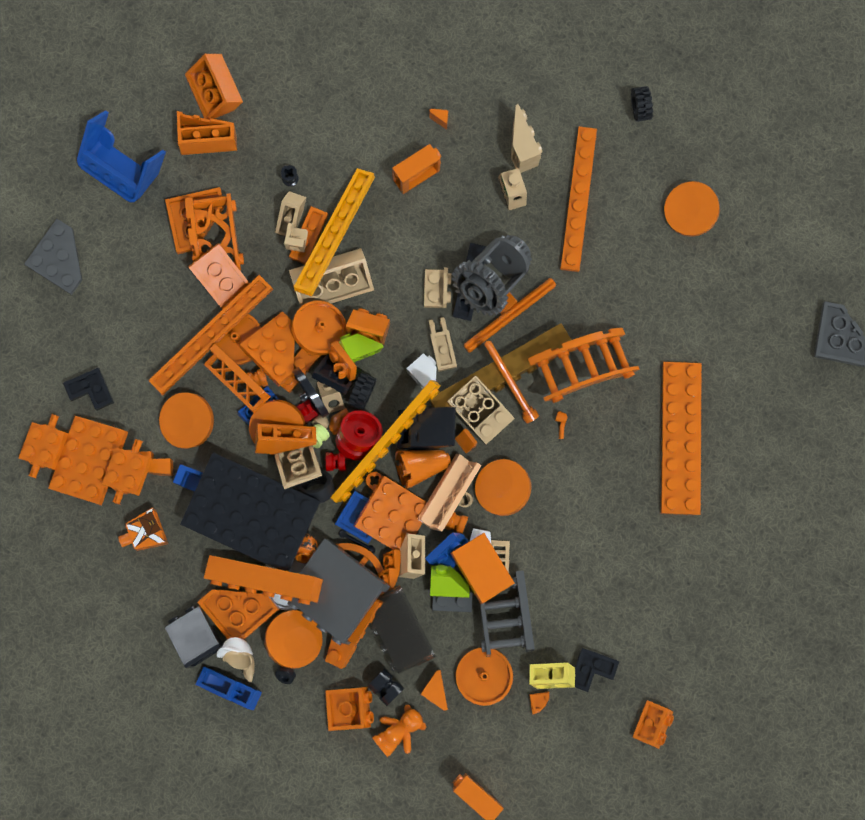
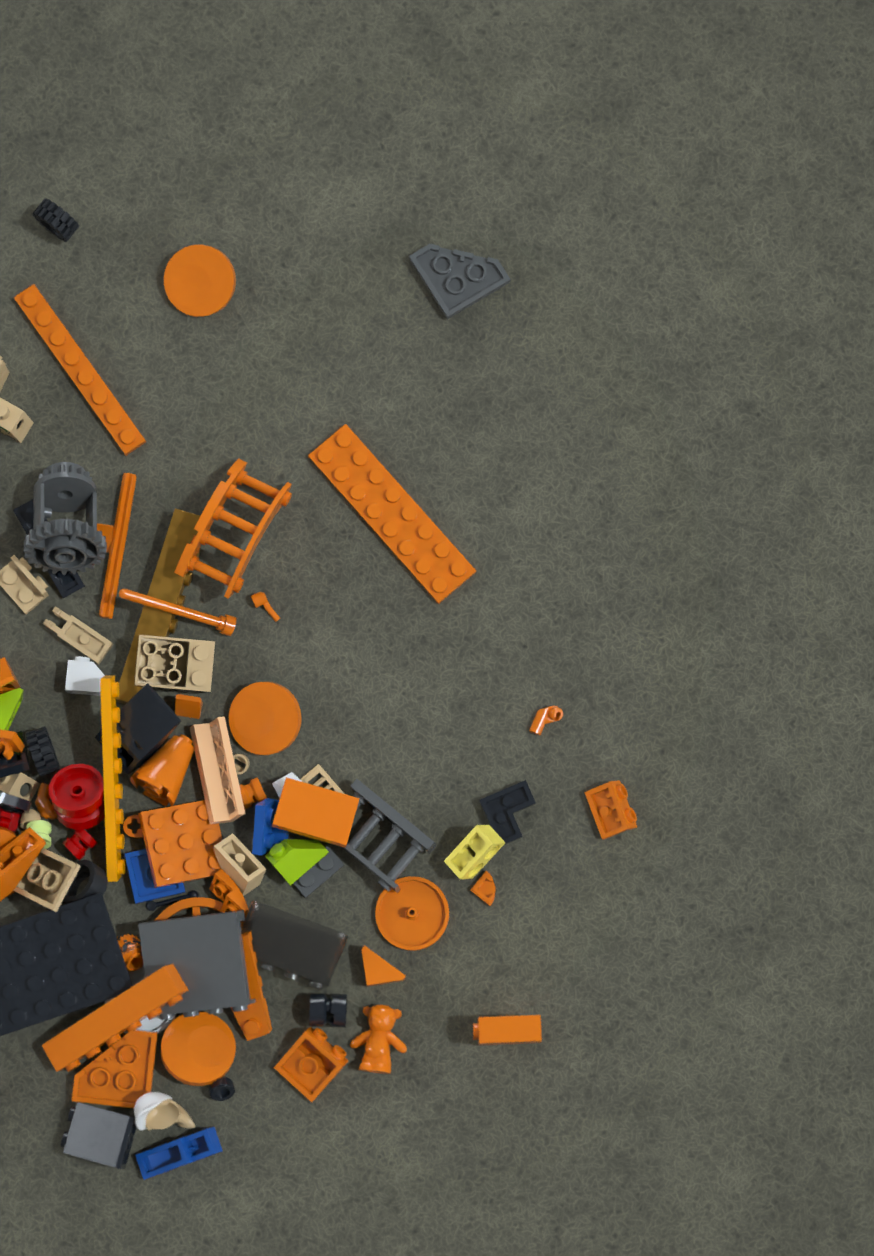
camera: 40 degrees left, 0 degrees up
(664, 635) = (545, 716): none -> orange arm

